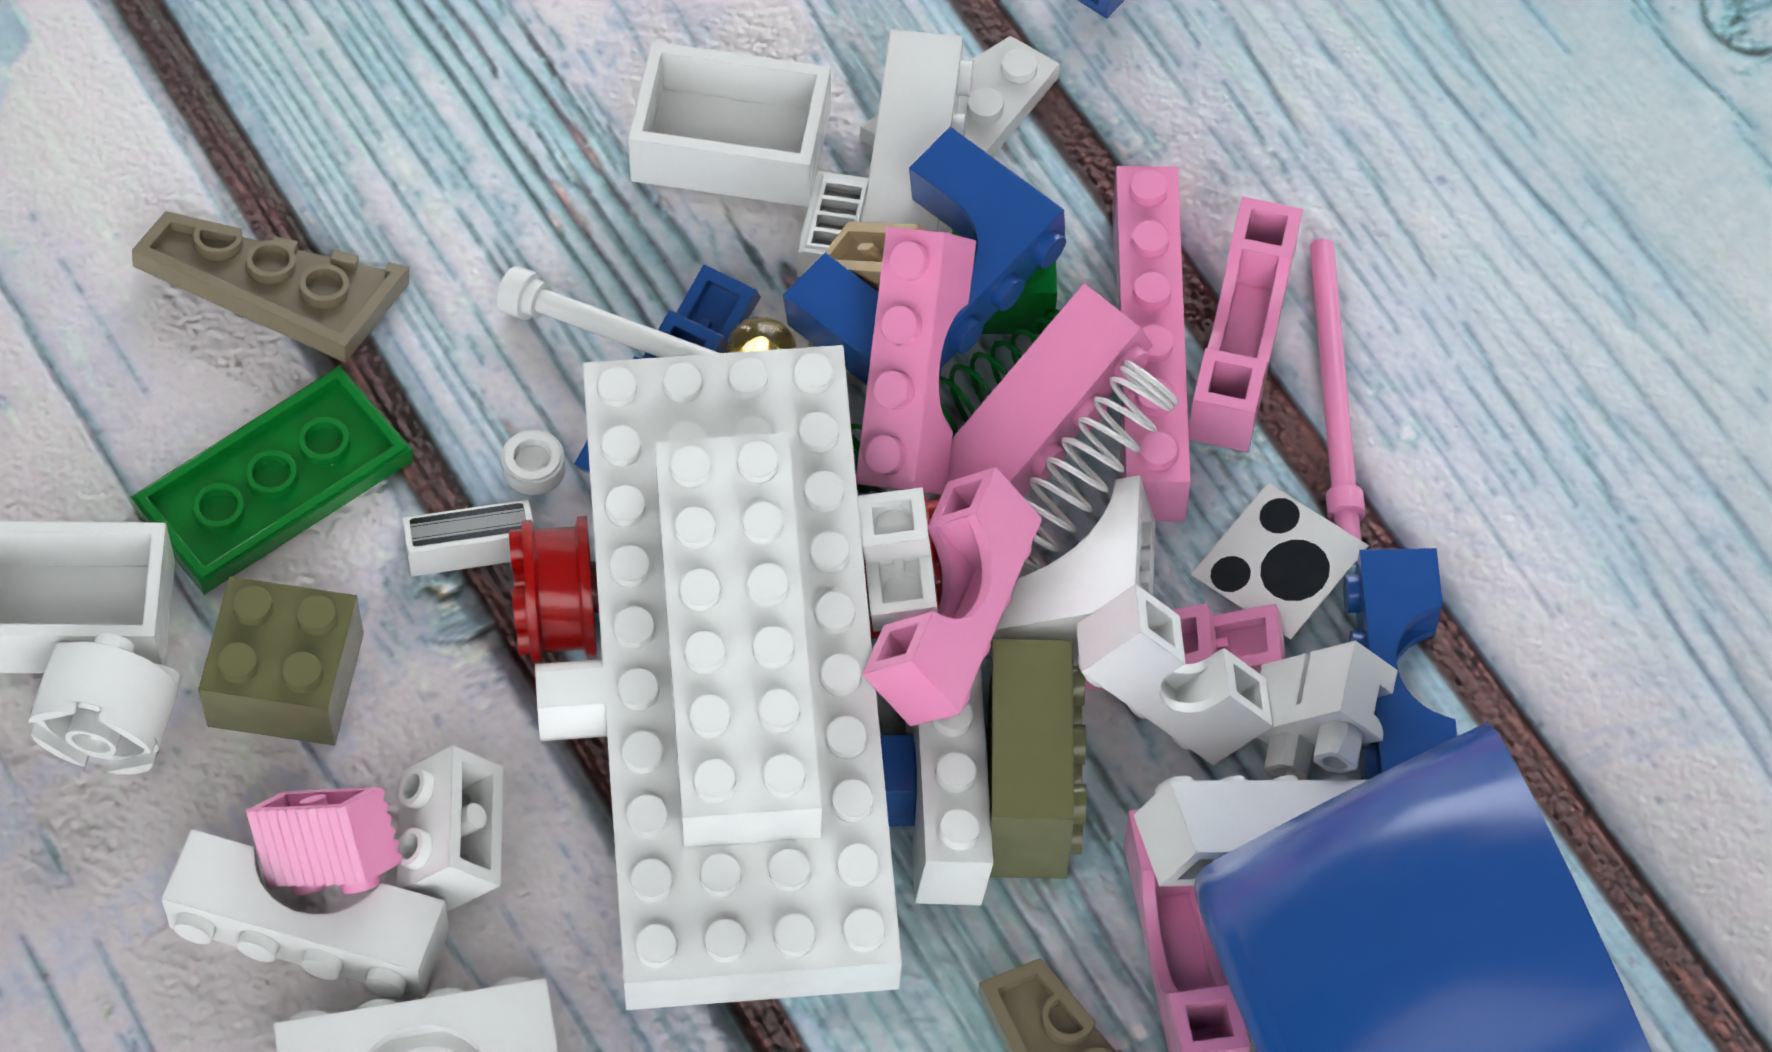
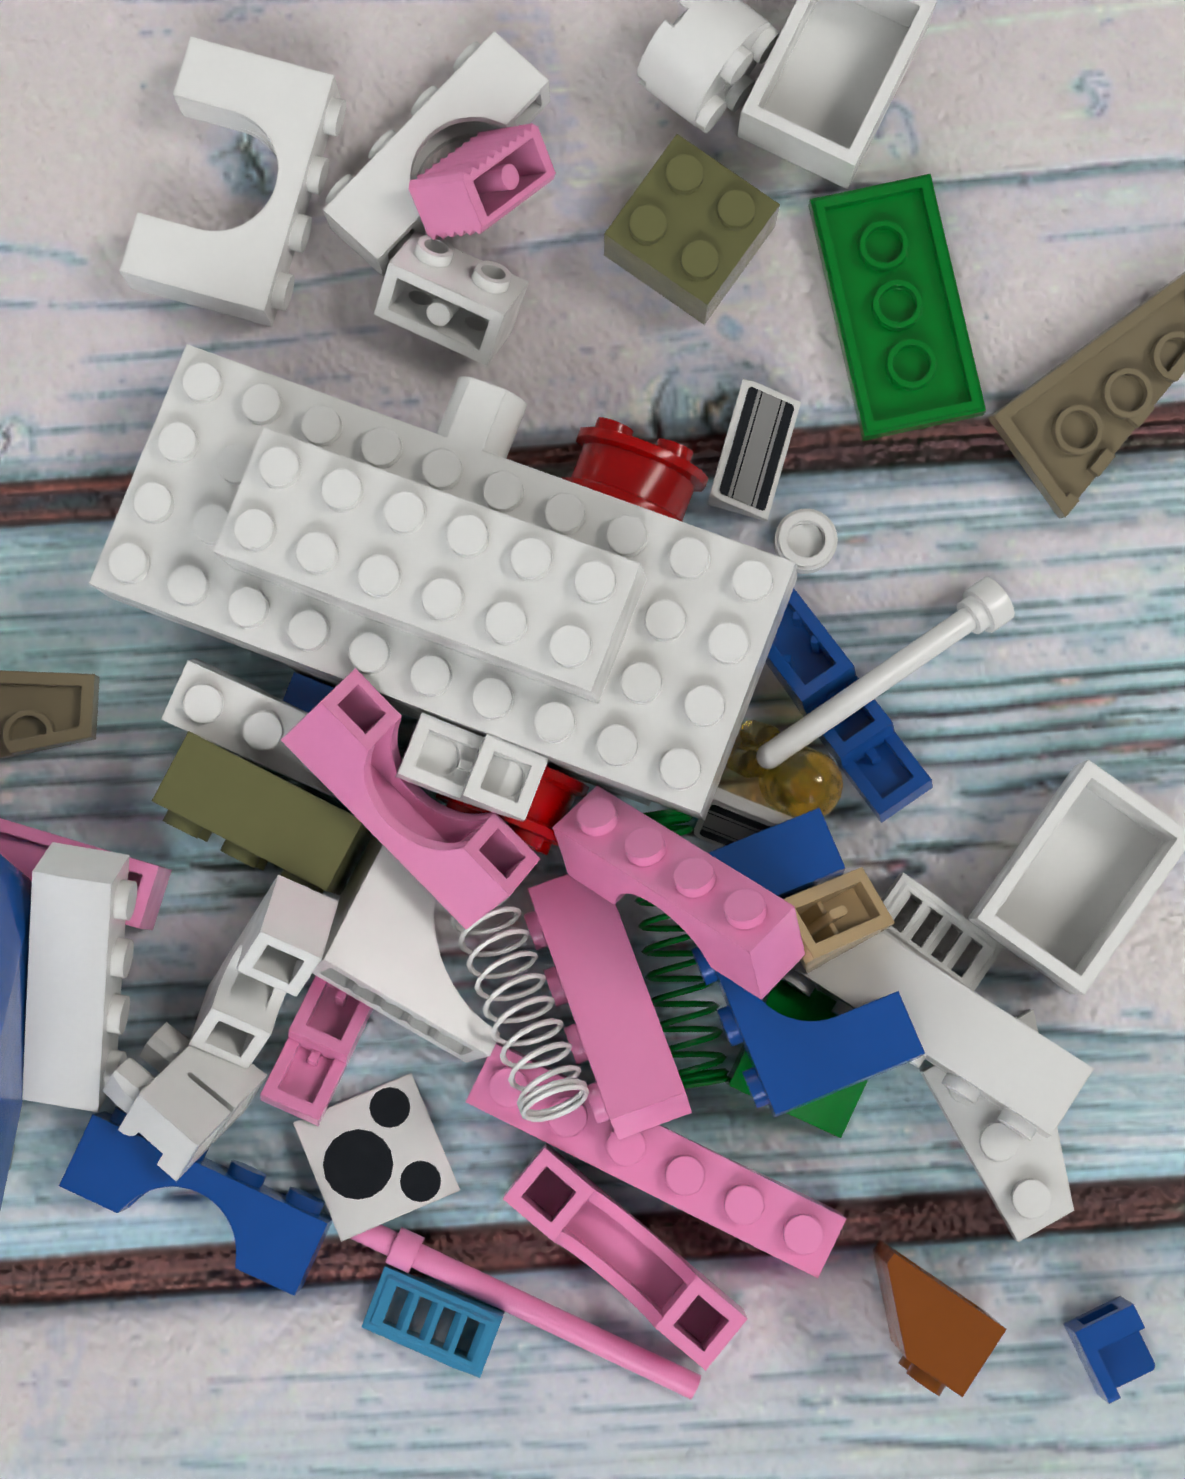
camera: 120 degrees right, 25 degrees up
(1166, 79) = (933, 1325): none -> dark orange slope
(1388, 415) = (444, 1352): none -> dark azure slope

